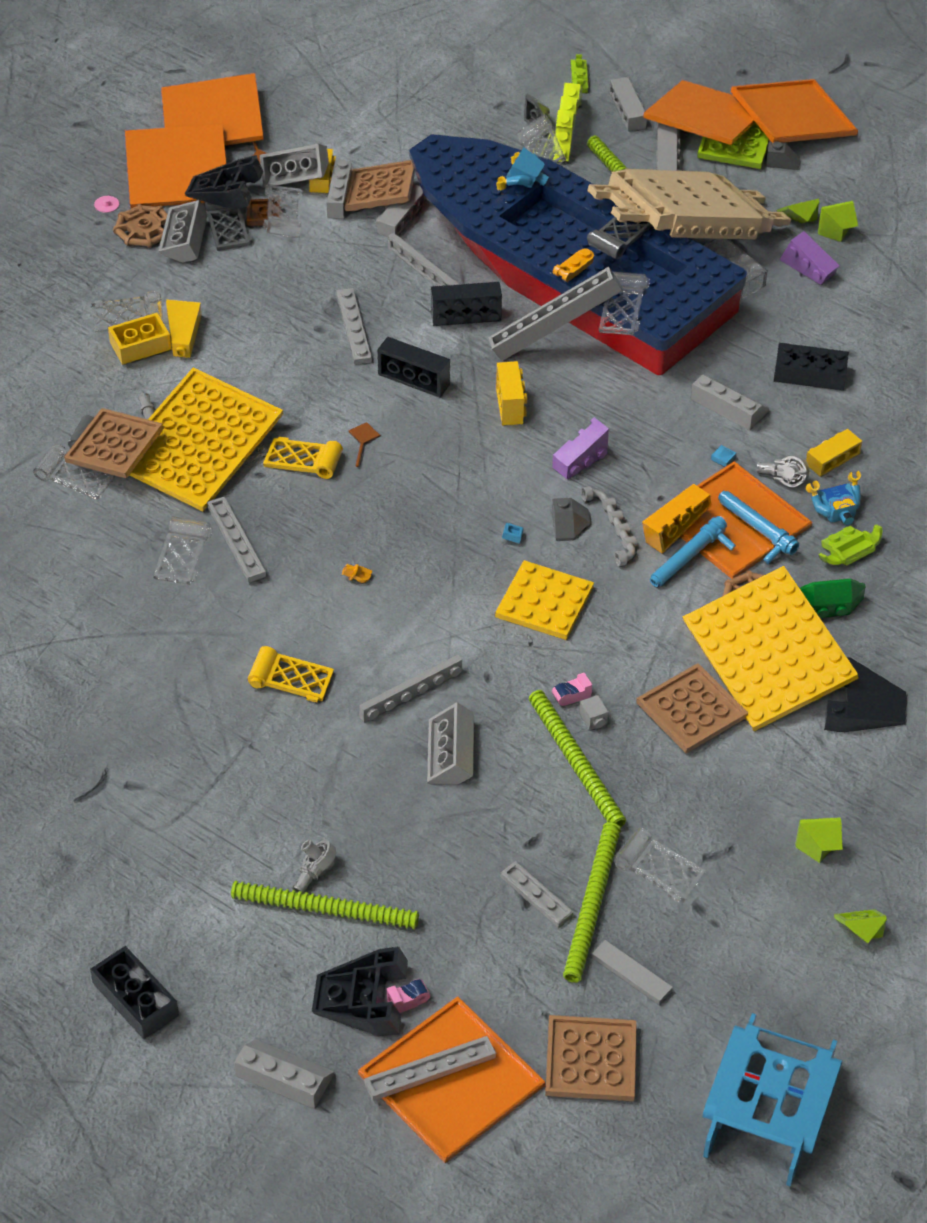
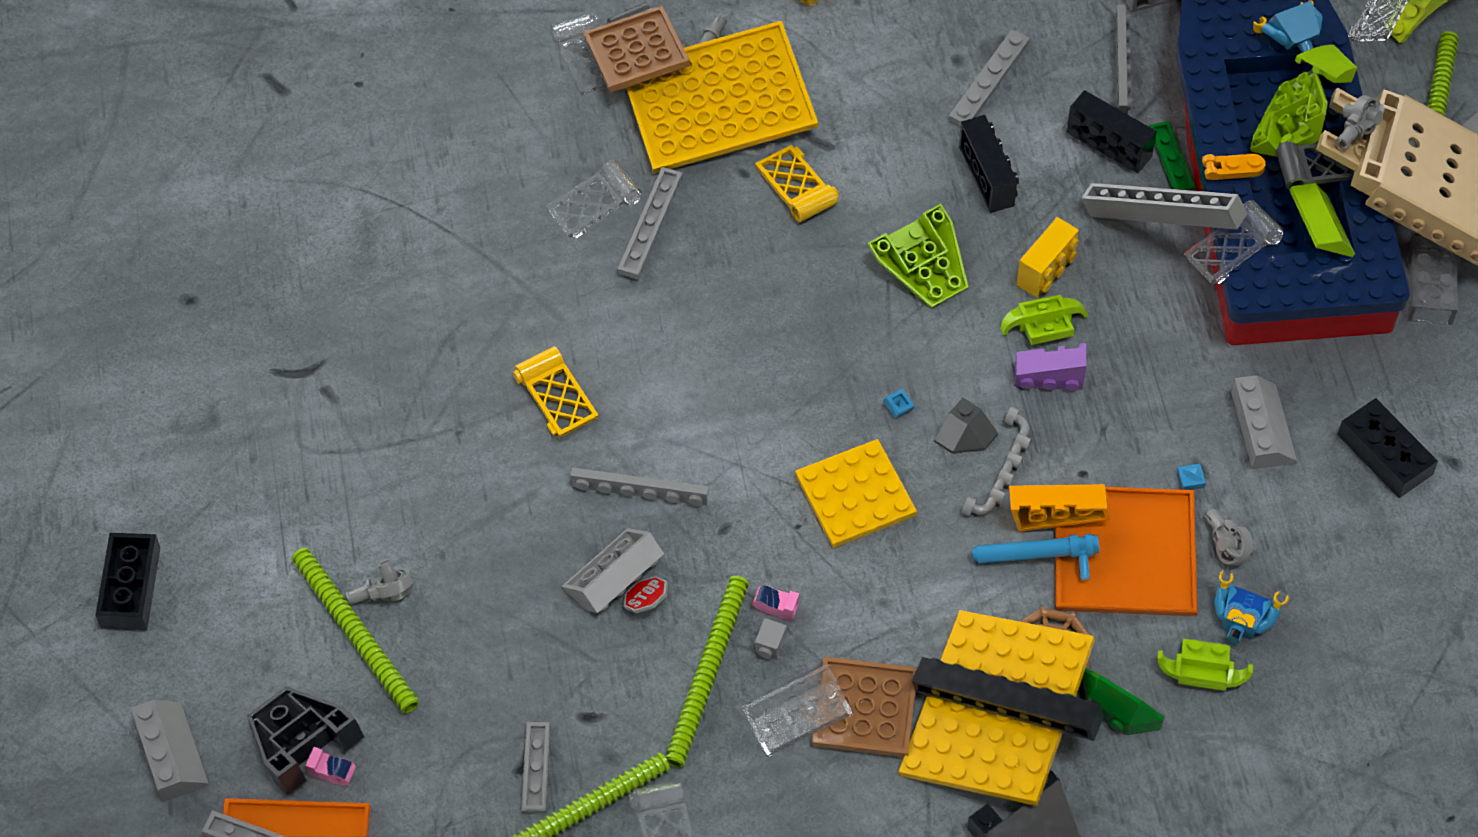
camera: 45 degrees right, 10 degrees up
(357, 572) = (719, 339): light orange piece -> none
(364, 434) = (876, 199): dark orange piece -> none
(434, 442) = (924, 257): none -> lime wedge
(489, 744) = (645, 594): none -> piece
(518, 302) = (1172, 158): none -> green tile
(543, 430) = (1044, 318): none -> lime plate
(566, 177) = (1329, 62): none -> lime slope
(573, 216) = (1292, 115): none -> lime wedge
(629, 184) = (1361, 120): none -> light grey pin
(655, 259) = (1321, 219): none -> lime slope
(662, 734) = (797, 710): none -> clear brick
(777, 632) = (1008, 698): none -> black brick
(779, 537) = (1138, 602): dark azure cylinder -> none
(833, 452) = (1303, 556): yellow brick -> none

